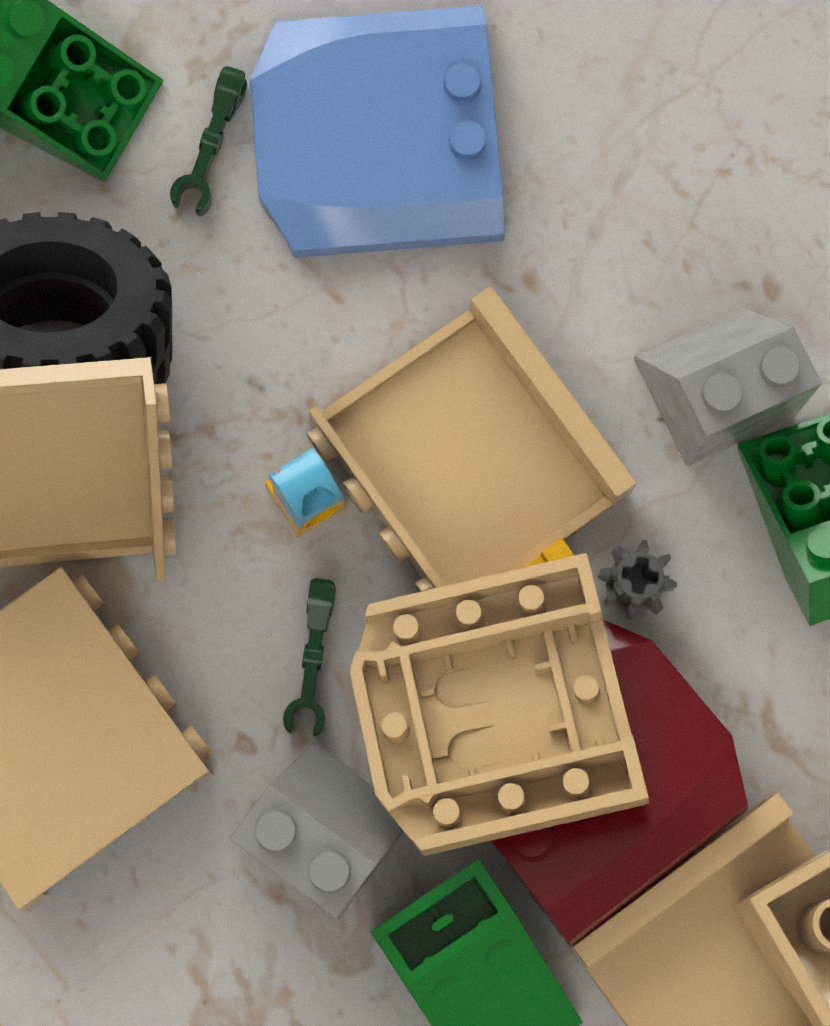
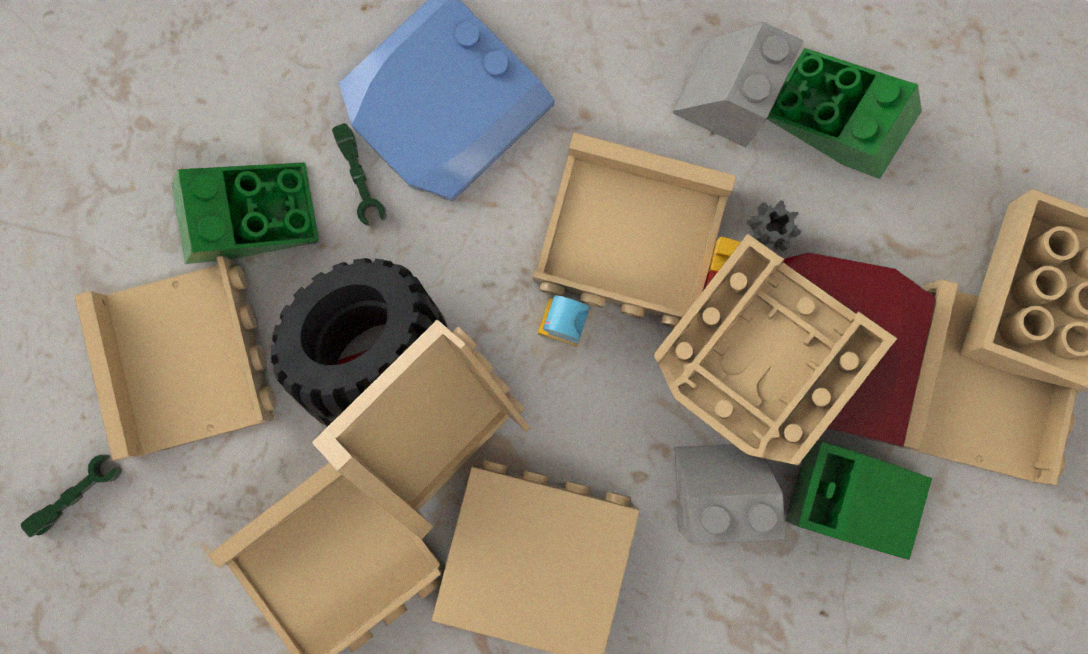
camera: 30 degrees left, 5 degrees up
(319, 610) = (622, 377): dark green piece -> none

